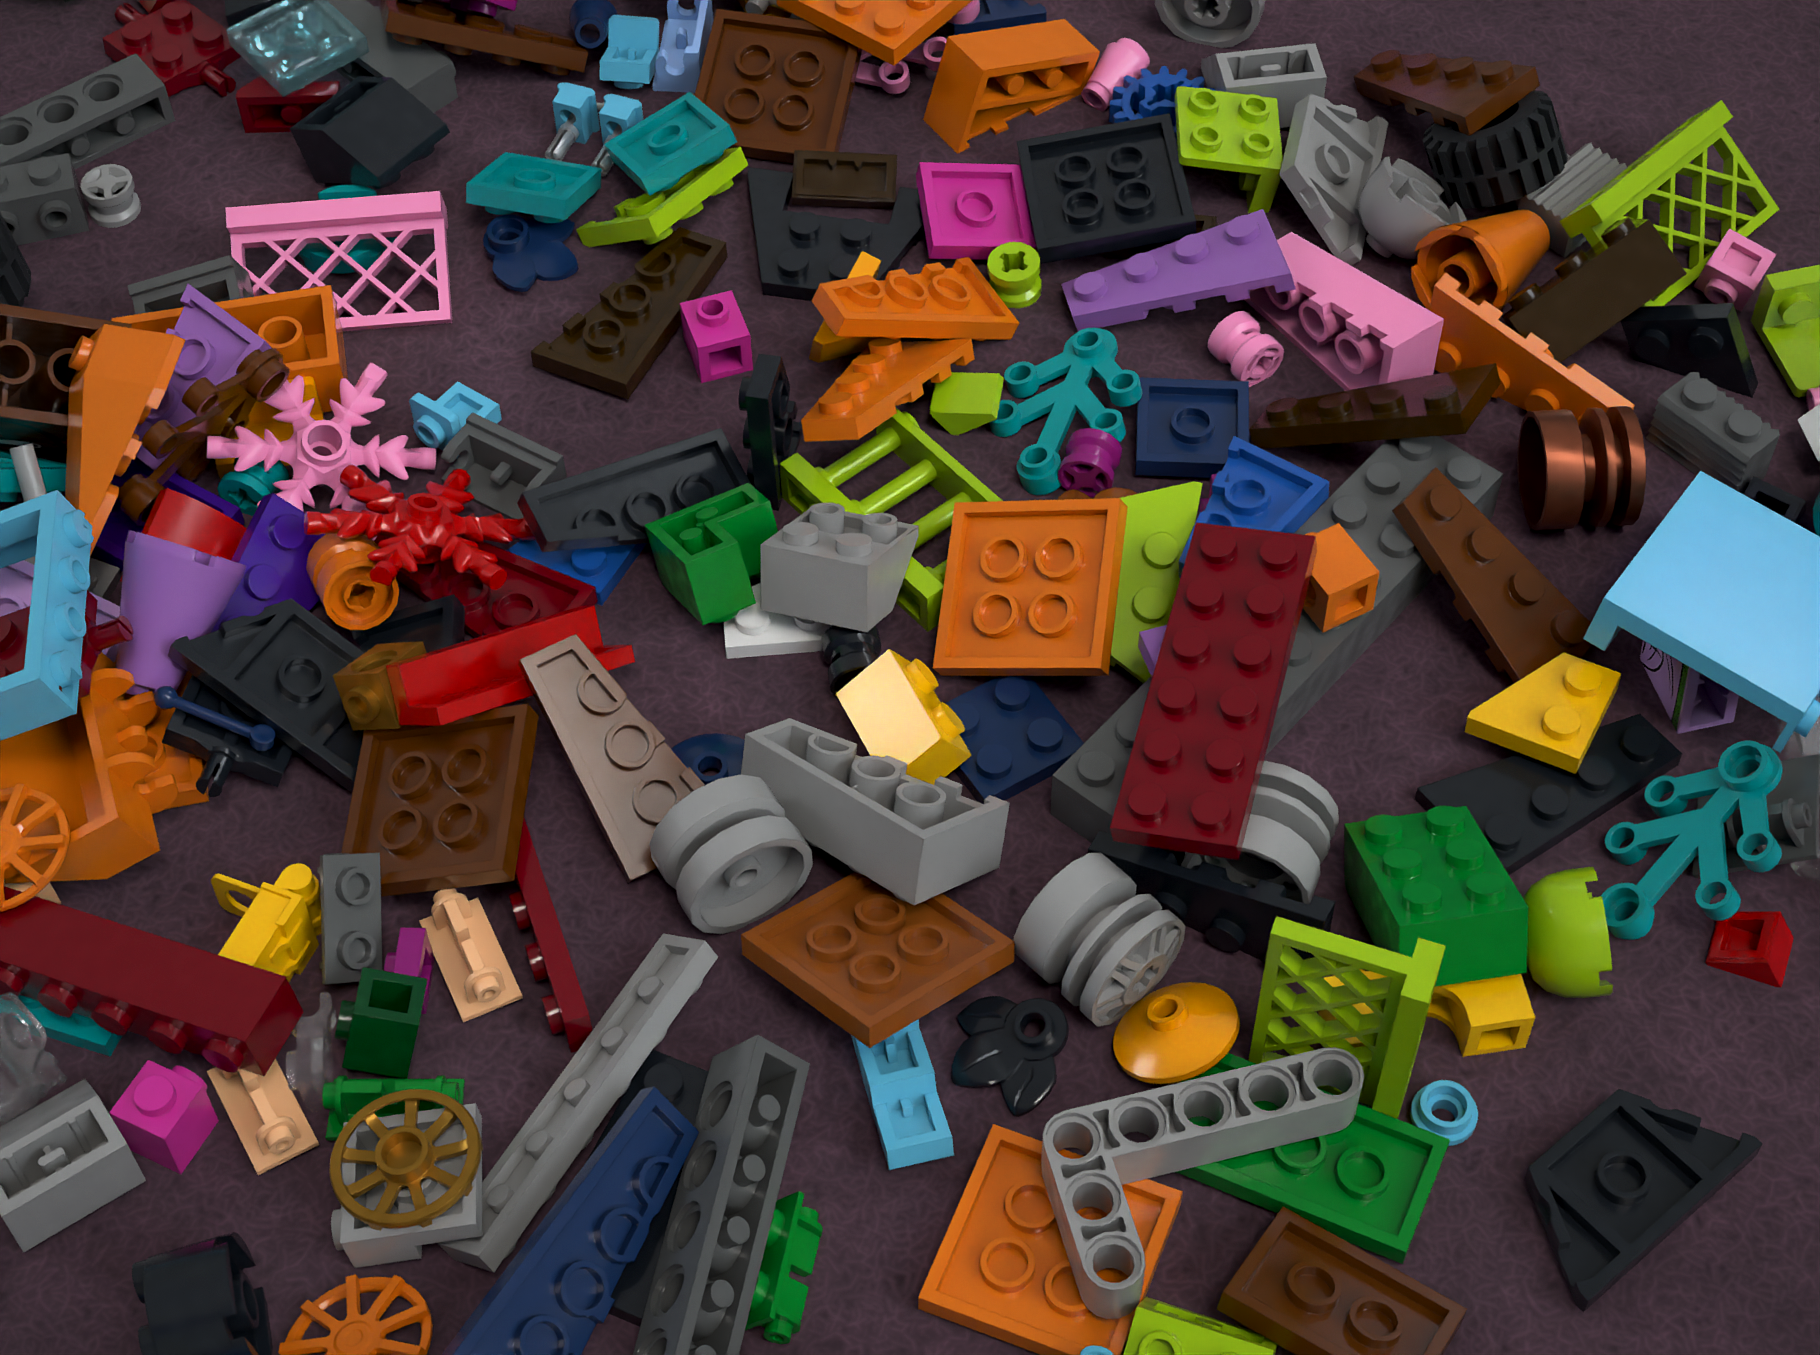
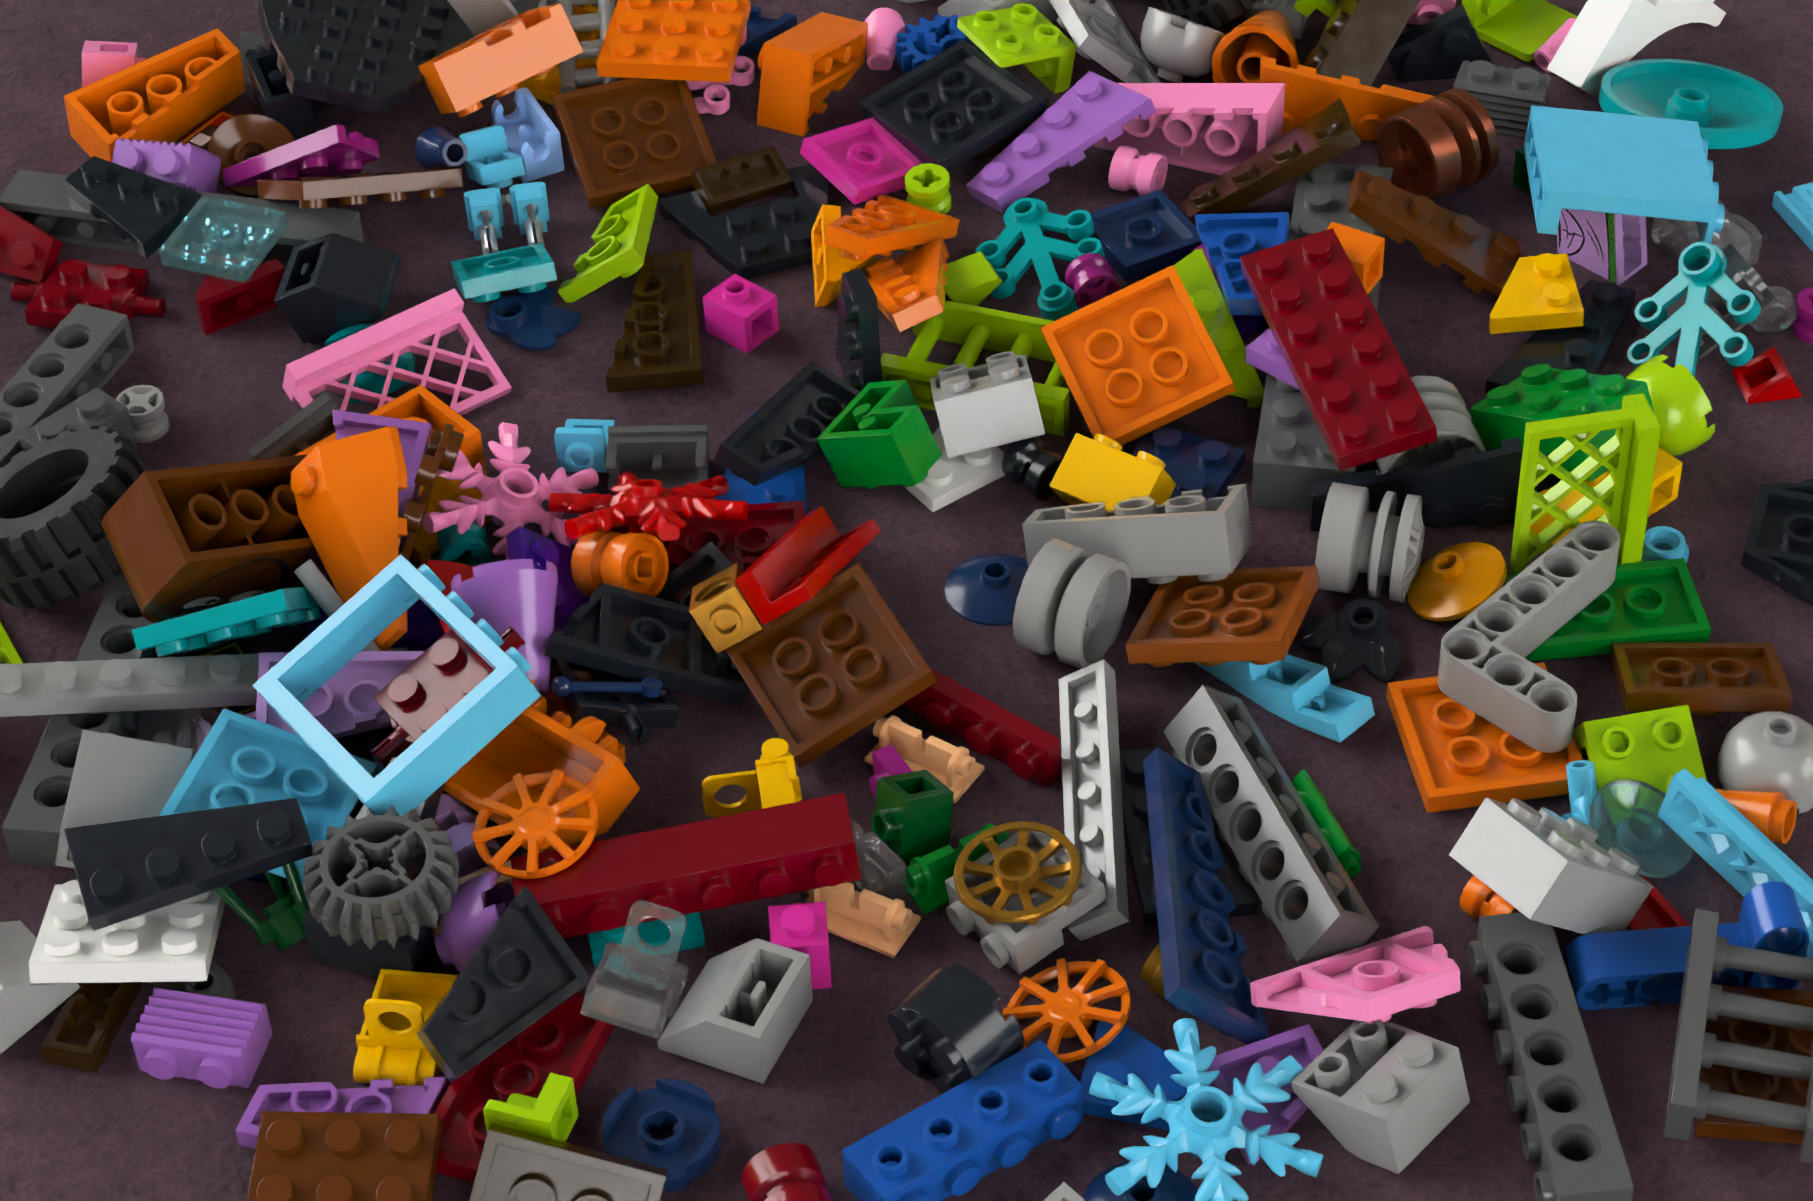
camera: 30 degrees left, 10 degrees down
(350, 915) = (816, 746): dark grey hinge -> none
(610, 748) = (933, 583): wing -> none
(671, 144) = (595, 198): teal plate -> none

